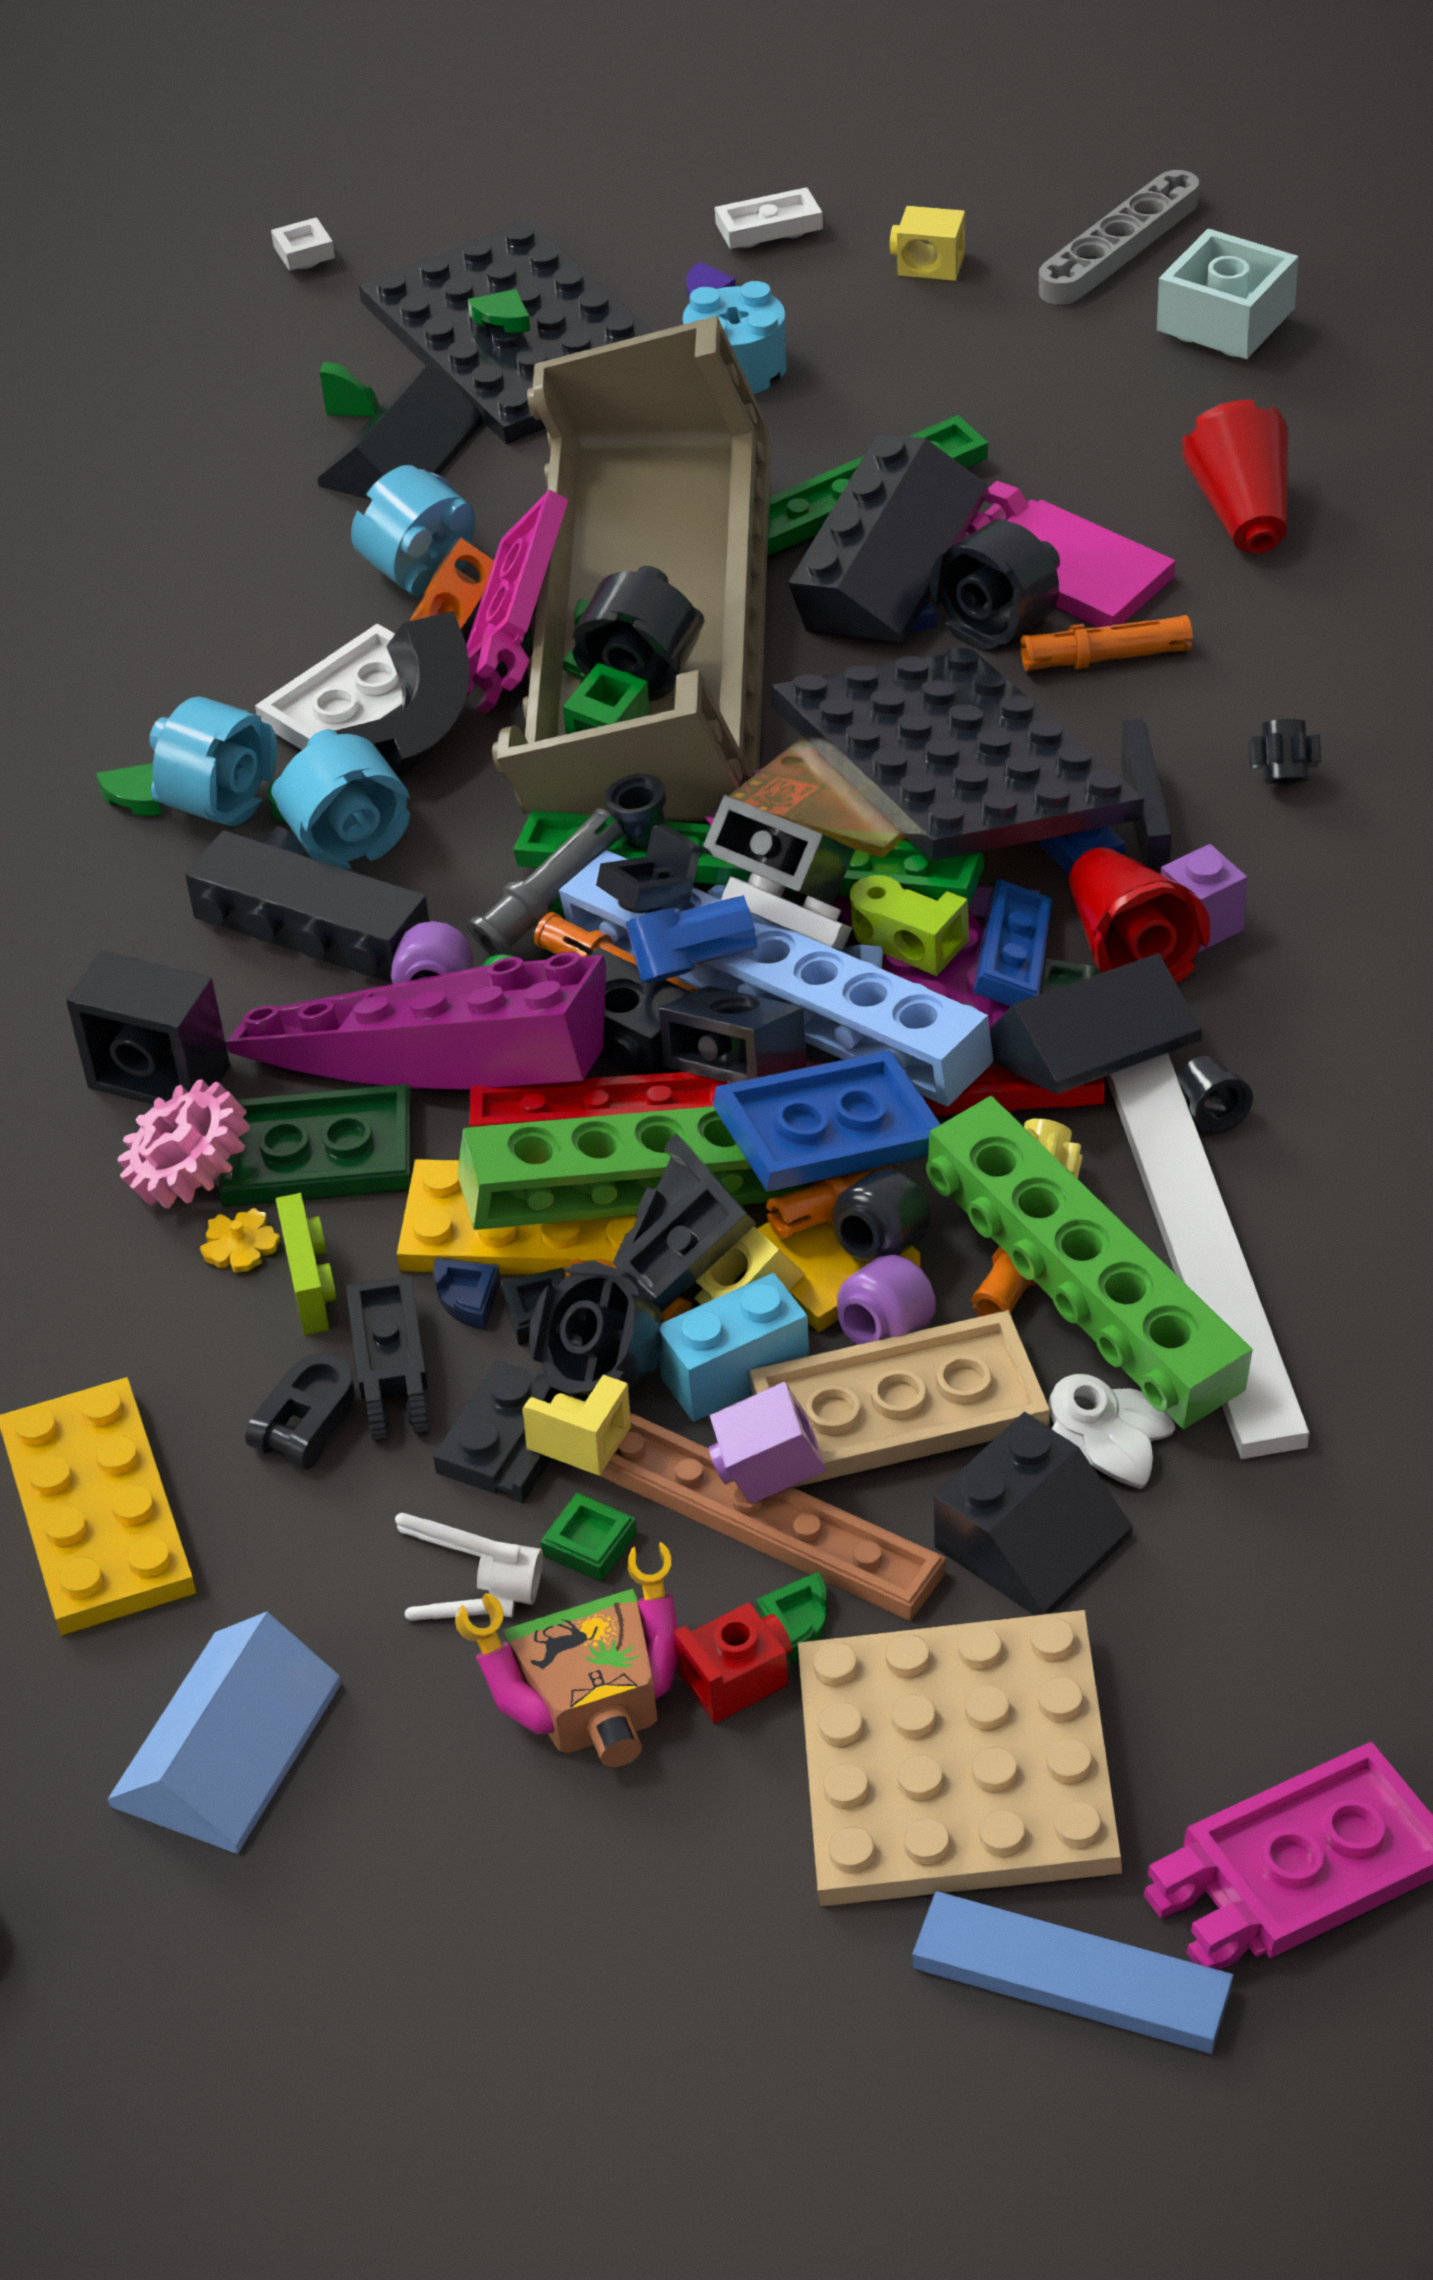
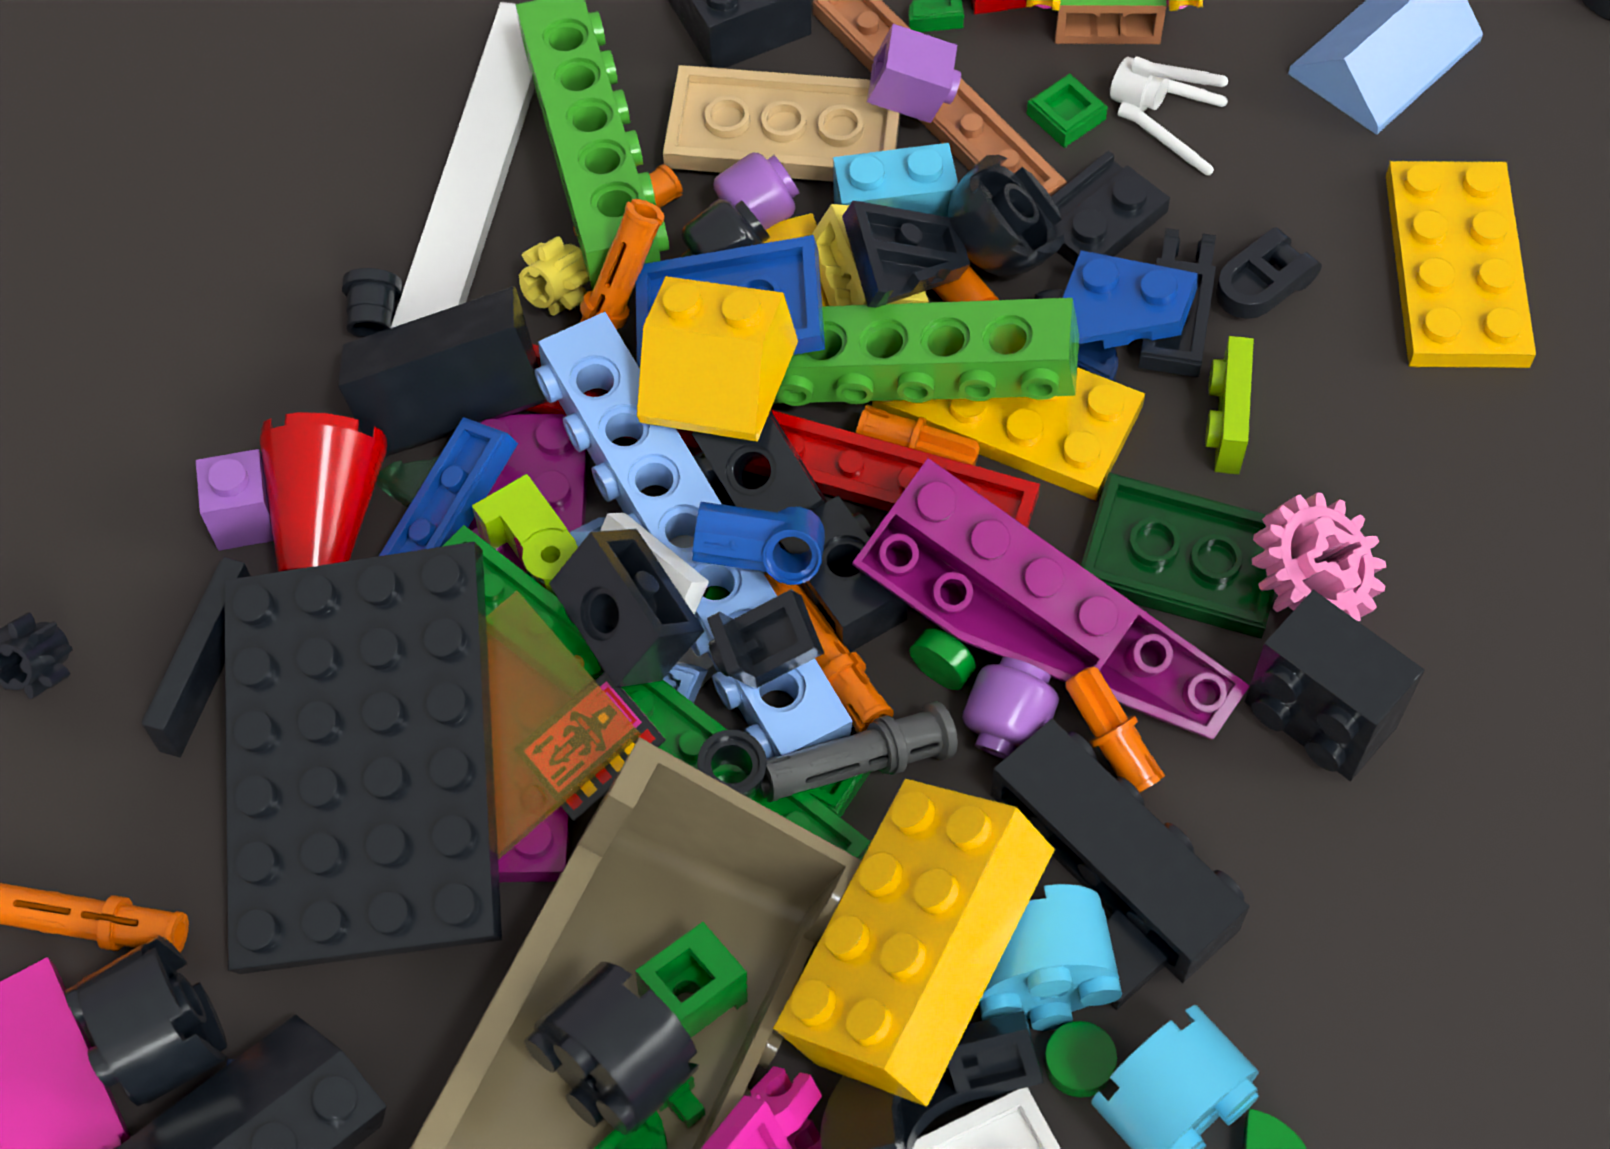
camera: 160 degrees left, 15 degrees up
(239, 1241) = (1278, 478): yellow plant -> none
(334, 969) = (1113, 729): none -> orange axle
(434, 726) = (915, 939): none -> yellow brick
(446, 1303) = (1128, 299): none -> blue wing
(580, 1430) = (1052, 150): light yellow panel -> none
(802, 1030) = (713, 357): none -> yellow slope
(942, 1093) = (623, 263): none -> orange pin
(1116, 1432) = (649, 60): white plate -> none

